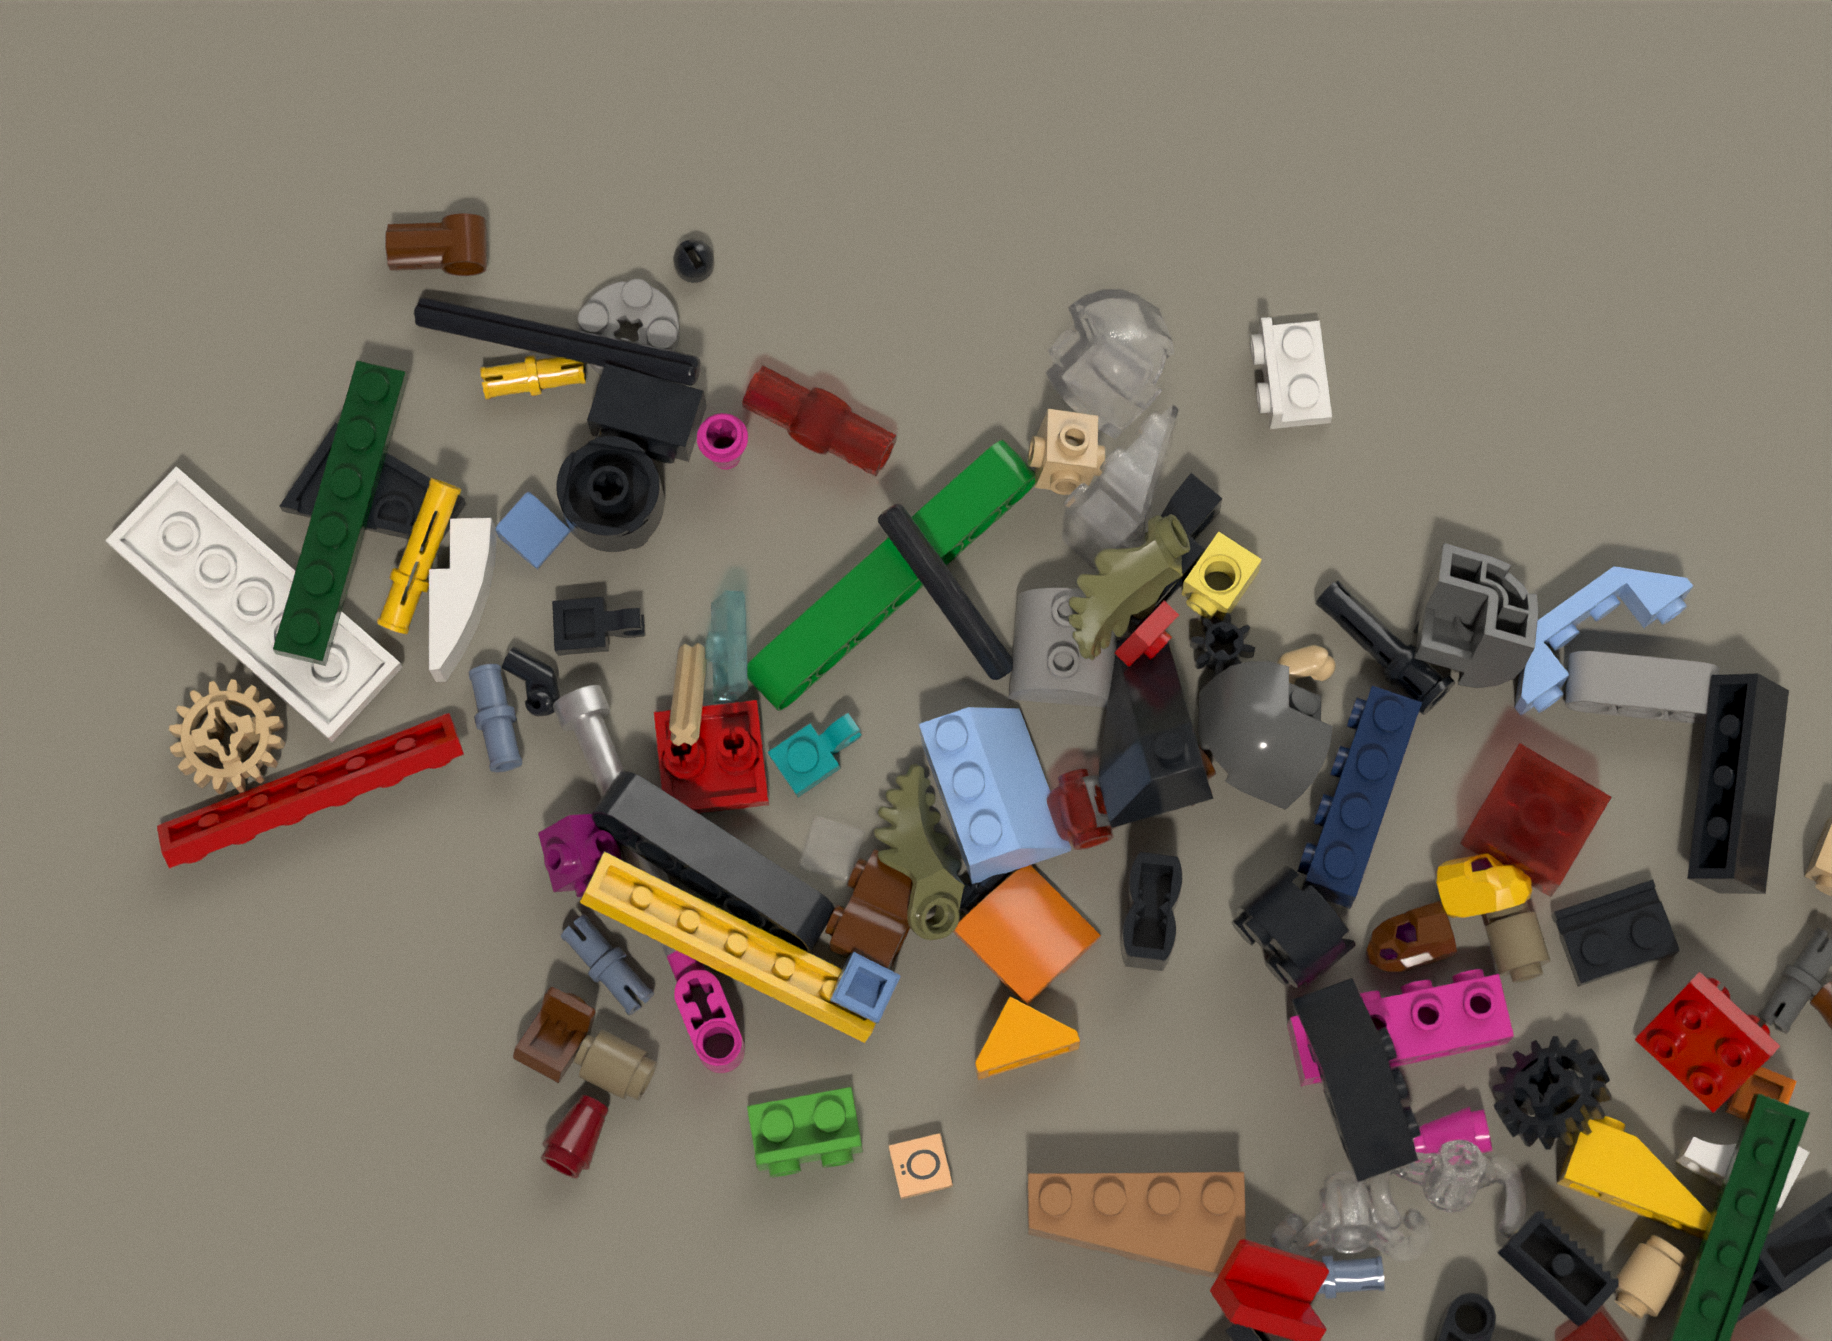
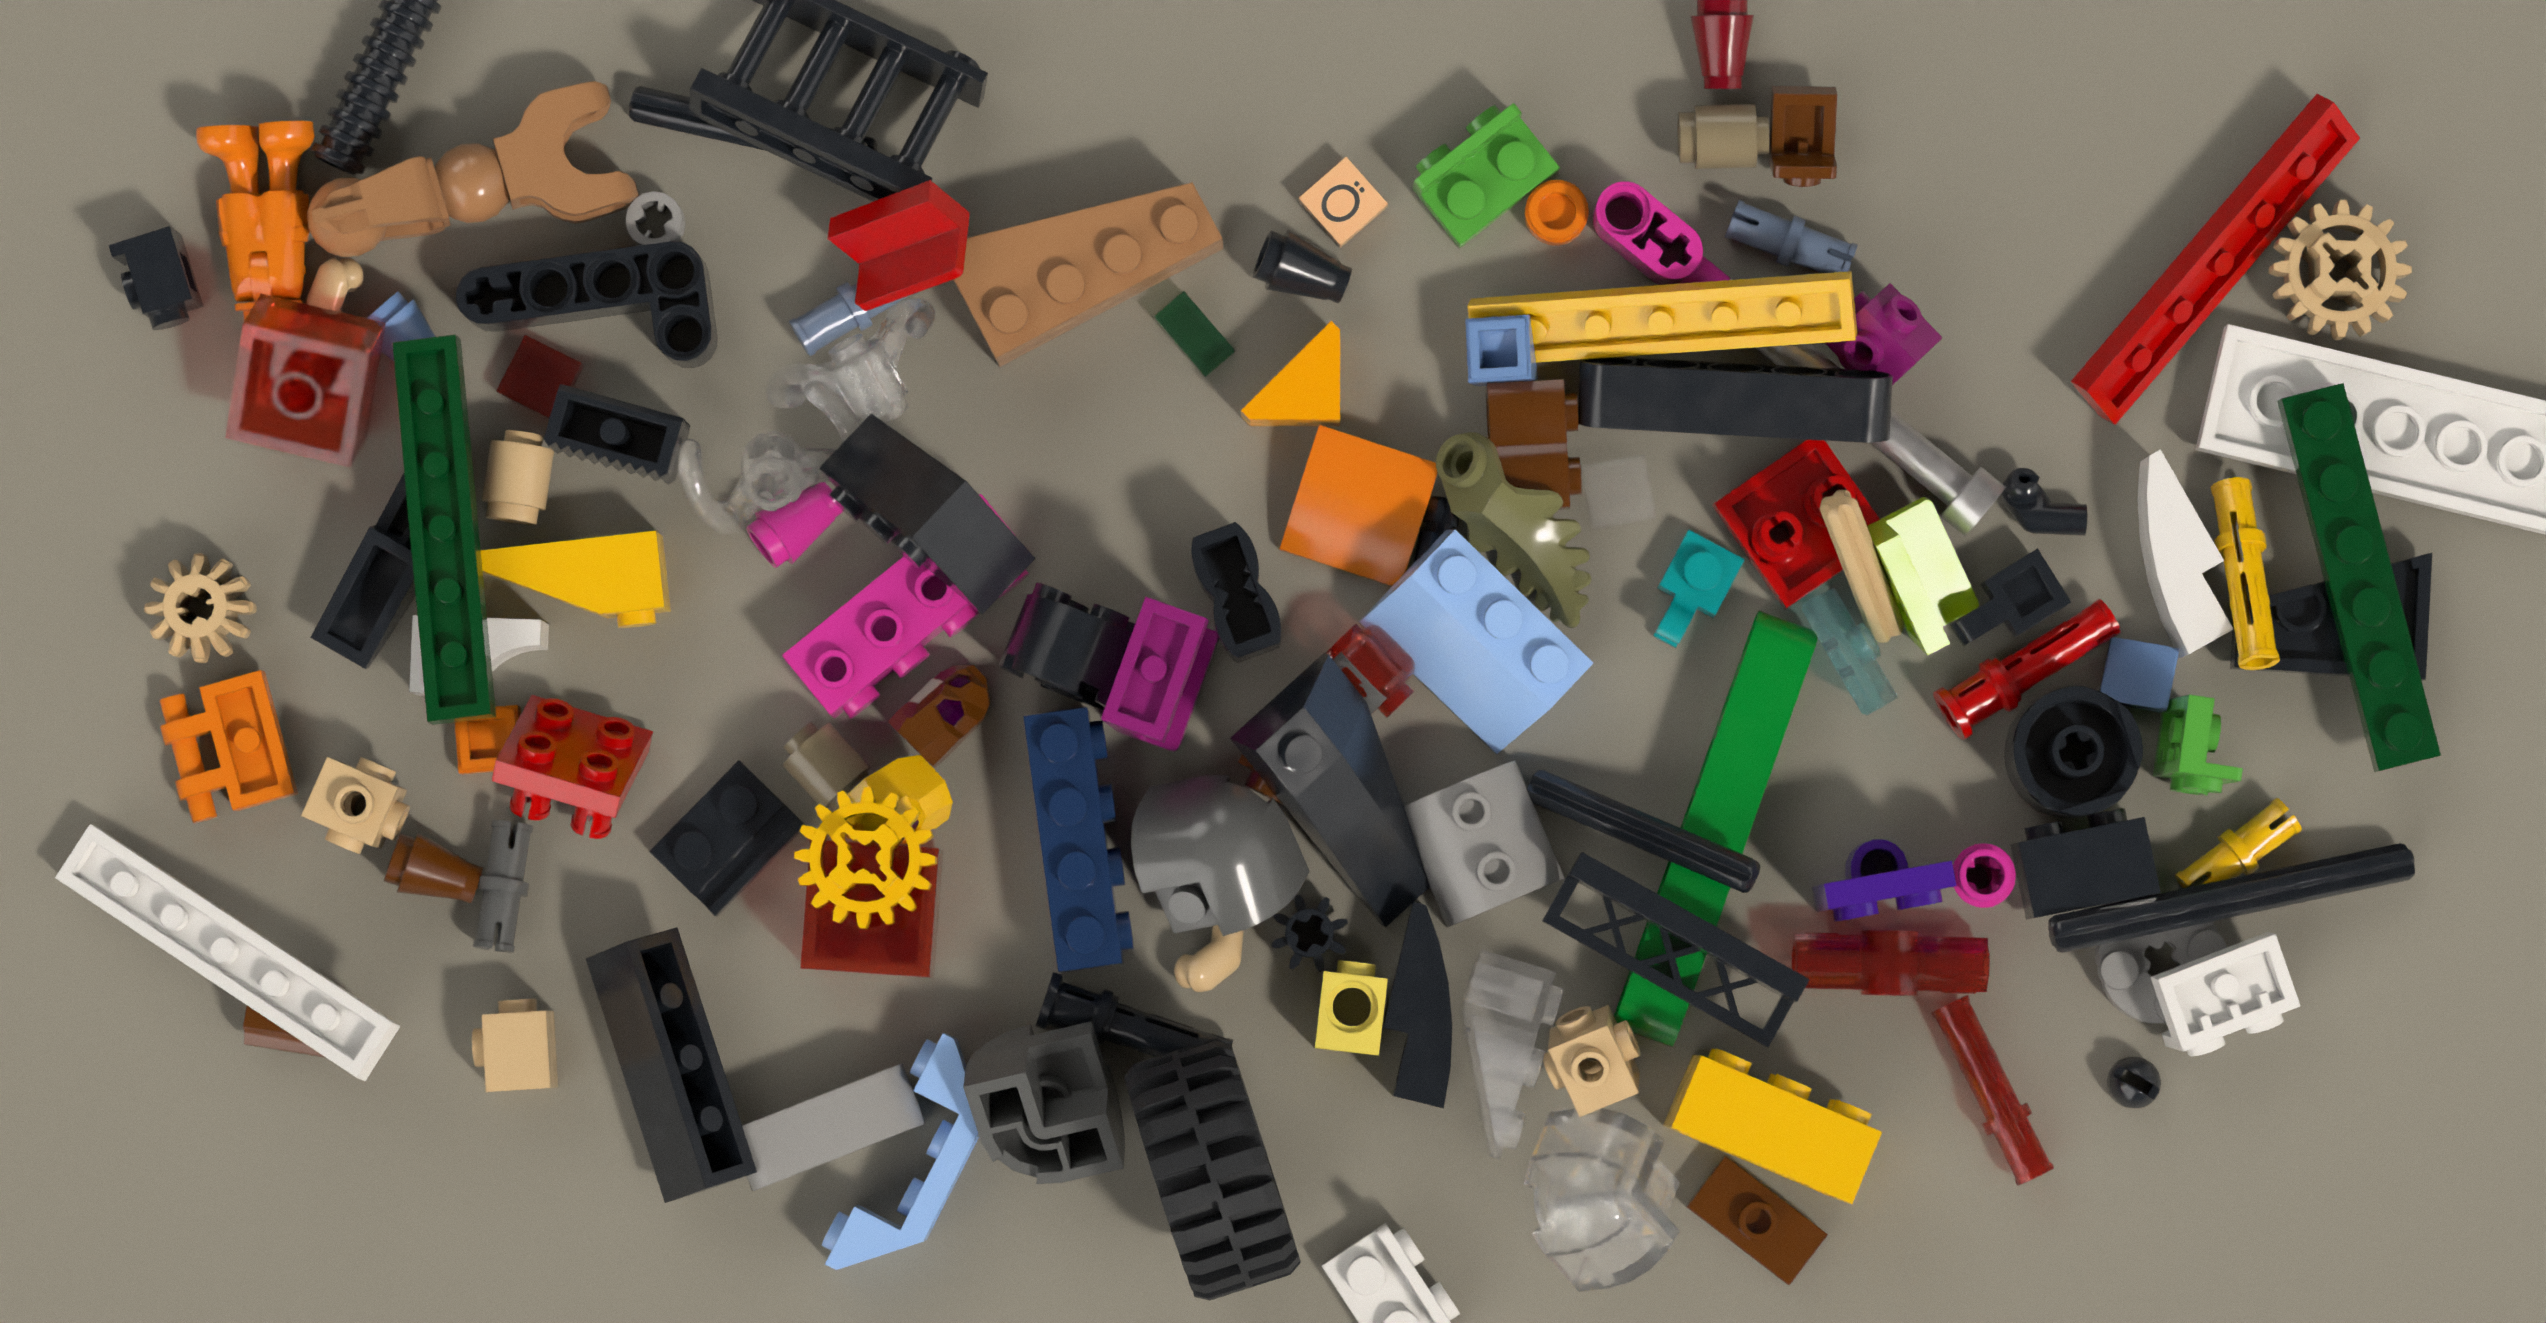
camera: 150 degrees right, 10 degrees up
(452, 245) = (2417, 952): reddish brown piece -> none
(495, 718) = (2061, 443): sand blue pin -> none
(528, 454) = (2184, 738): none -> bright green bracket
(599, 277) = (2225, 993): none -> white bracket
(633, 572) = (2002, 682): none -> red pin
(646, 674) = (1923, 572): none -> panel
(766, 1076) = (1556, 212): none -> orange tile
(776, 460) = (1859, 895): none -> dark purple plate
(795, 246) = (1993, 1090): none -> clear red pin
(952, 499) = (1686, 927): none -> black fence
(964, 344) = (1774, 1124): none -> yellow brick
(979, 1131) = (1300, 269): none -> black cone
(1007, 298) = (1756, 1220): none -> reddish brown plate
(1082, 1127) = (1193, 333): none -> clear green piece
(1127, 585) = (1445, 930): olive plant -> none
(1149, 636) = (1394, 893): red plate -> none
(1240, 870) = (1161, 675): none -> magenta panel
(1383, 500) = (1211, 1169): none -> black tyre
(1548, 837) = (842, 877): none -> yellow gear
(1552, 1092) = (705, 613): black gear -> none

